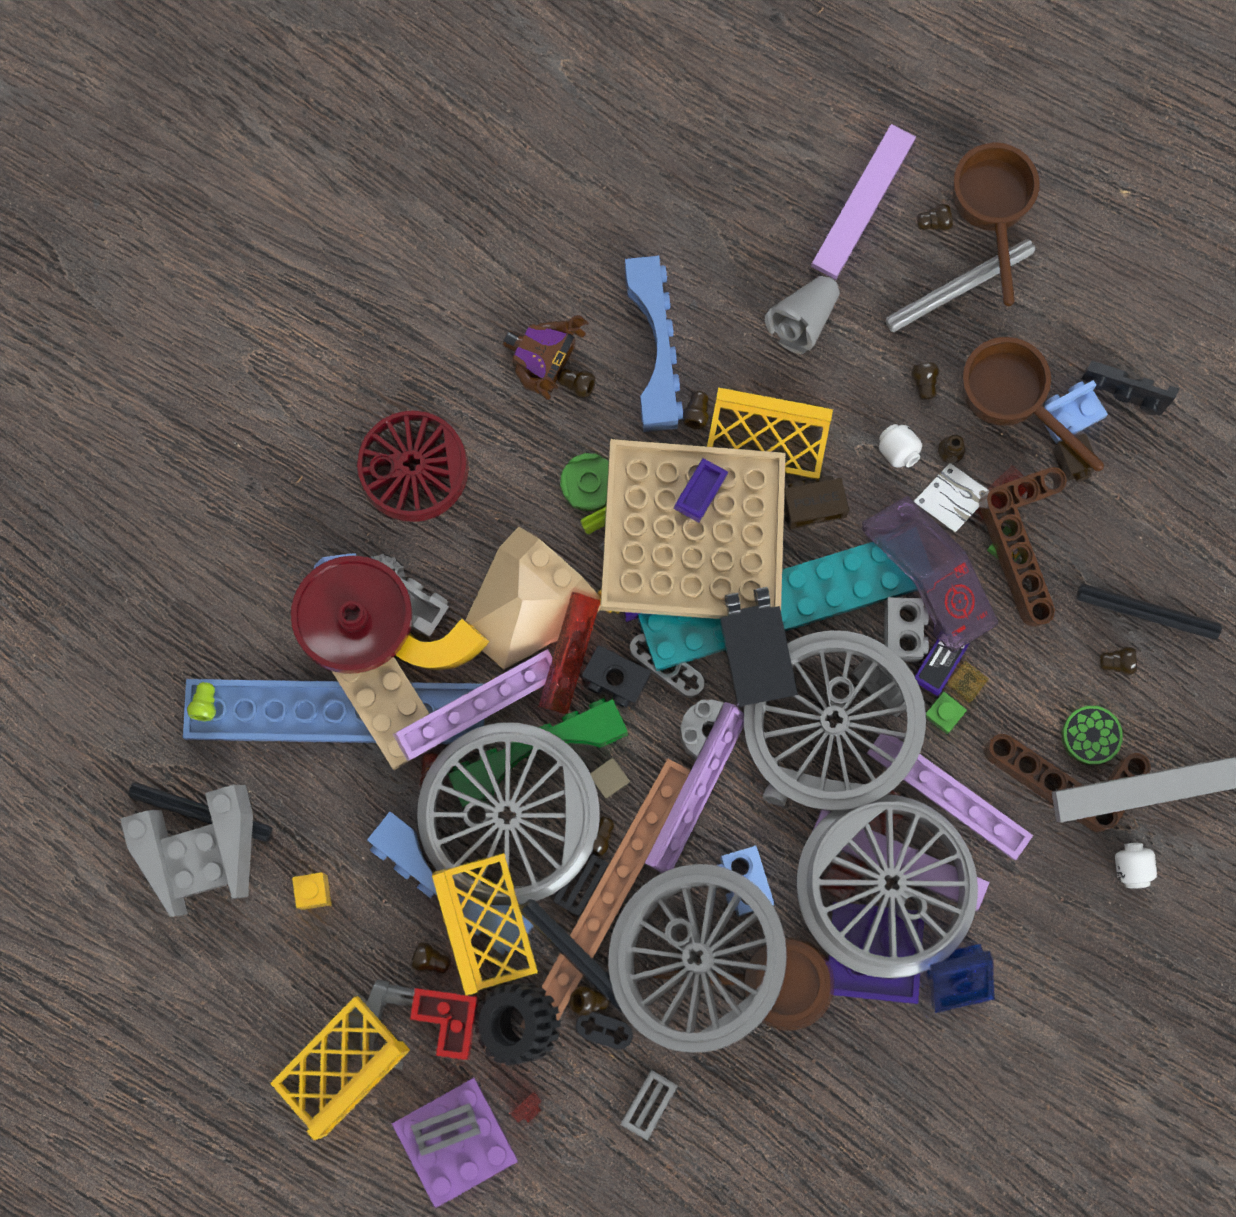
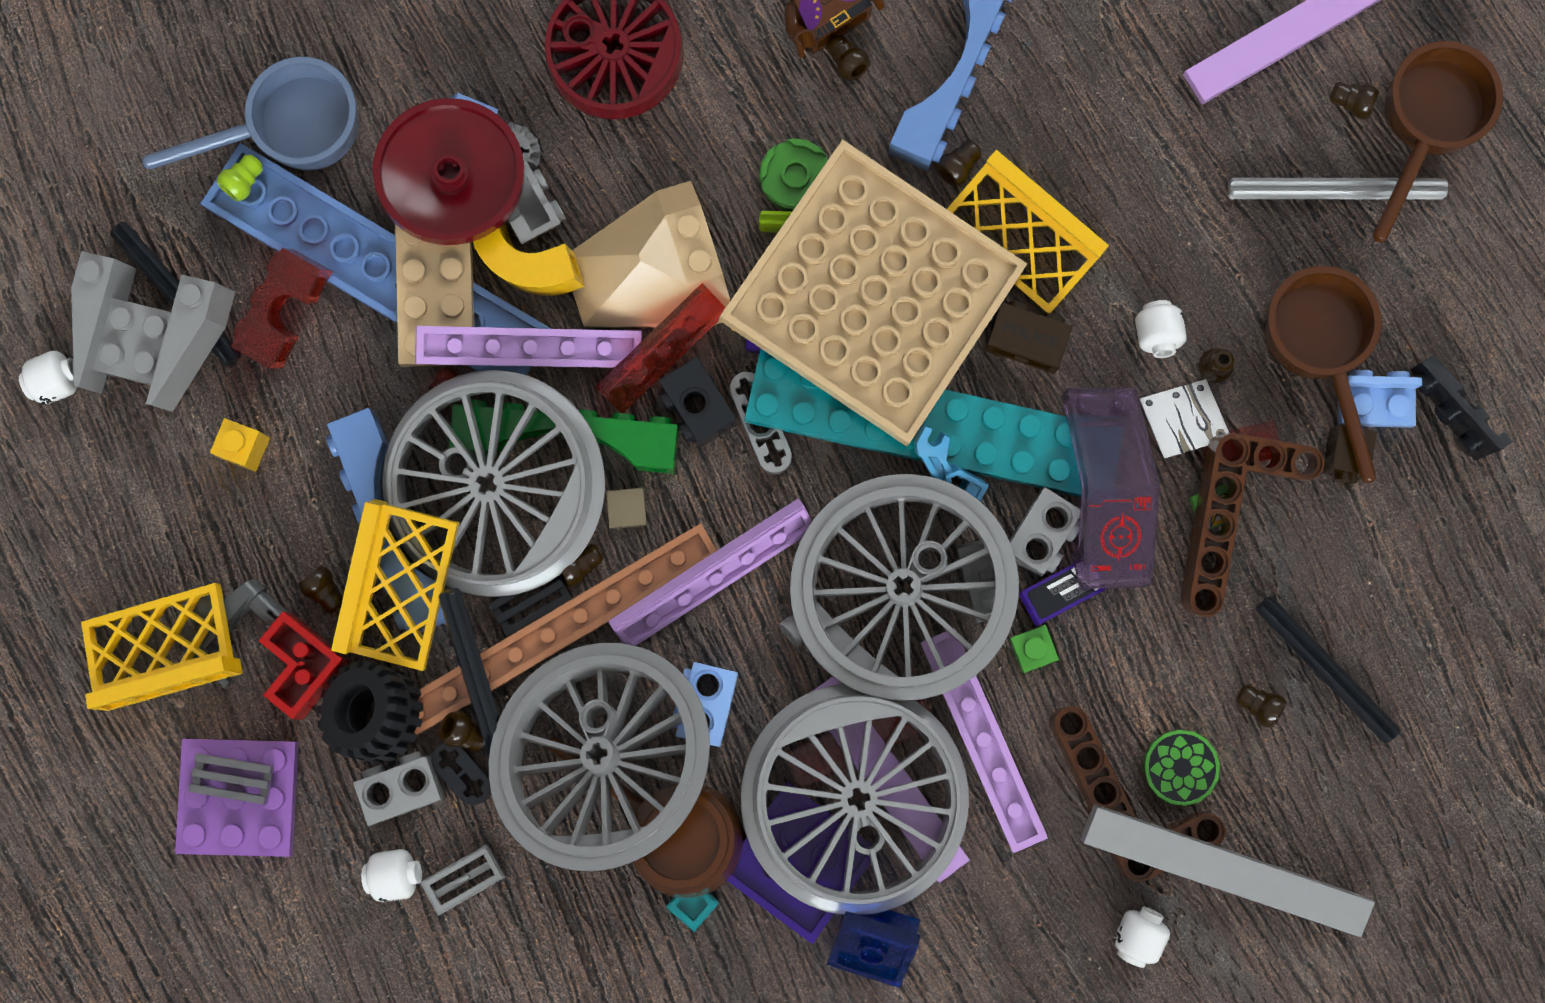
camera: 30 degrees right, 5 degrees up
(145, 923) = (48, 378): none -> white head
(216, 635) = (294, 113): none -> sand blue piece
(281, 803) = (262, 331): none -> clear red arch
(528, 1108) = (331, 808): clear red plate -> none
(573, 1071) = (402, 796): none -> light grey brick
(598, 1131) = (391, 875): none -> white head
(695, 719) = (752, 500): light grey cylinder -> none
(700, 490) = (907, 251): dark purple tile -> none
(757, 650) = (862, 462): black tile -> none
(802, 619) = (934, 458): none -> dark azure piece
(803, 314) = (1140, 121): light grey cone -> none
(822, 1030) = (692, 910): none -> teal tile
(926, 379) = (1234, 271): dark brown piece -> none
(967, 681) = (1079, 629): clear yellow tile -> none

